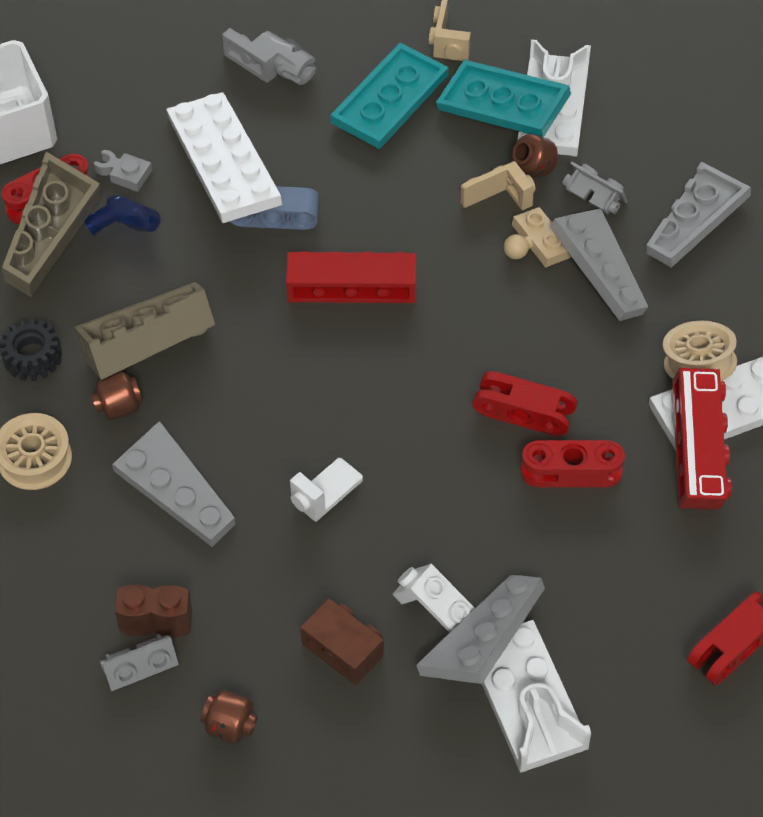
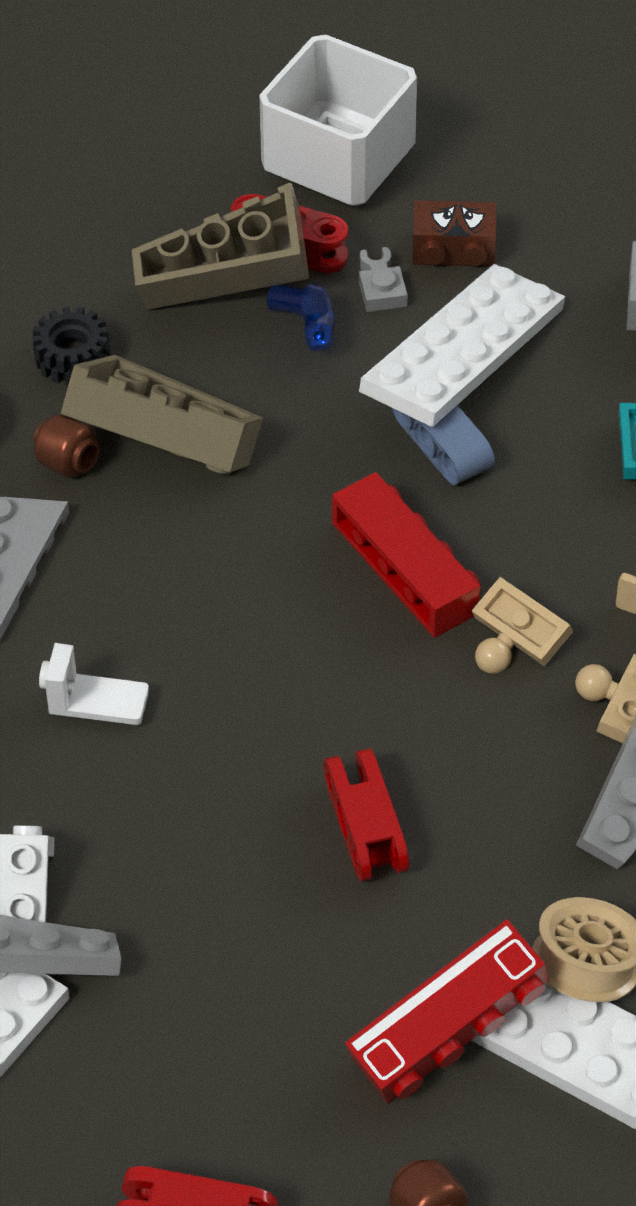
camera: 55 degrees right, 5 degrees down
(125, 112) = (454, 233): none -> copper brick
(447, 255) = (518, 623): none -> tan plate
(547, 463) = (299, 882): red piece -> none

